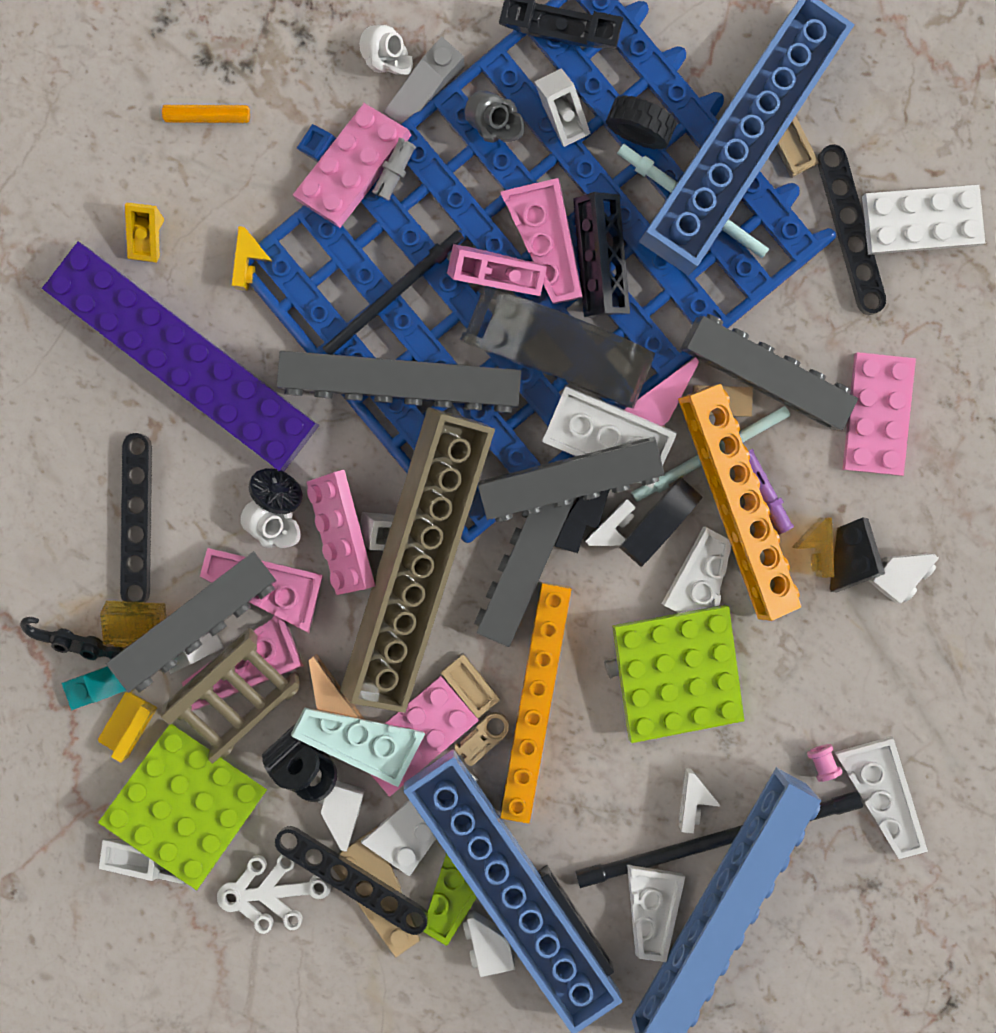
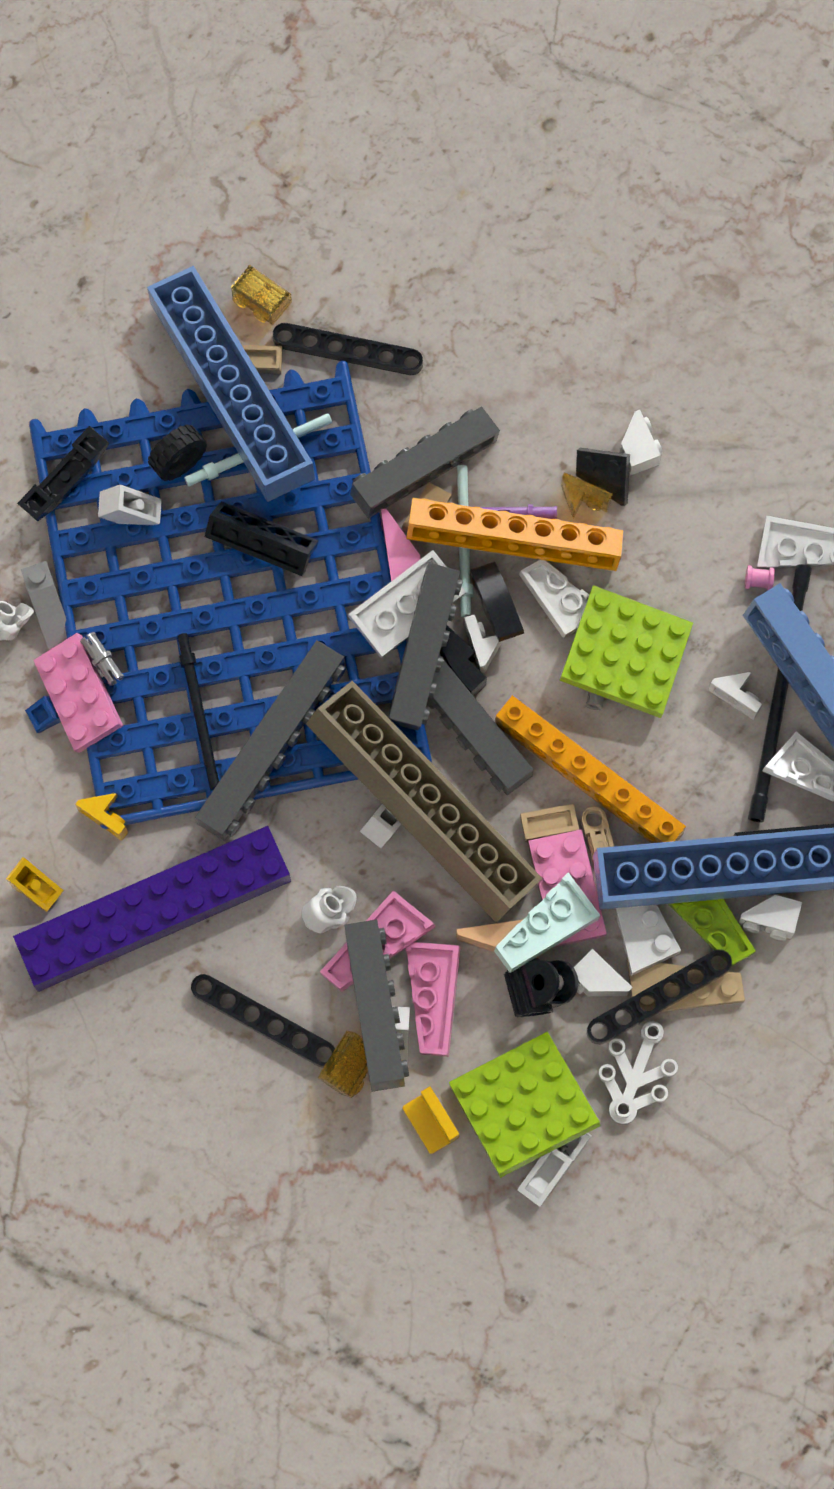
camera: 65 degrees left, 15 degrees down
(65, 640) = (337, 1126): black piece -> none
(91, 687) = (383, 1130): teal slope -> none
(224, 668) = (432, 1031): dark tan fence -> none
(275, 491) = (304, 890): black wheel -> none
(340, 533) = (367, 854): bright pink plate -> none
(494, 117) = (107, 561): dark grey head -> none
(495, 270) = (227, 621): bright pink slope -> none
(544, 227) = (219, 570): bright pink wing -> none
(560, 346) = (313, 604): clear smoke windscreen -> none
(862, 110) = (260, 295): none -> clear yellow brick
(882, 414) = (506, 399): bright pink plate -> none
(923, 219) = (370, 293): white plate -> none

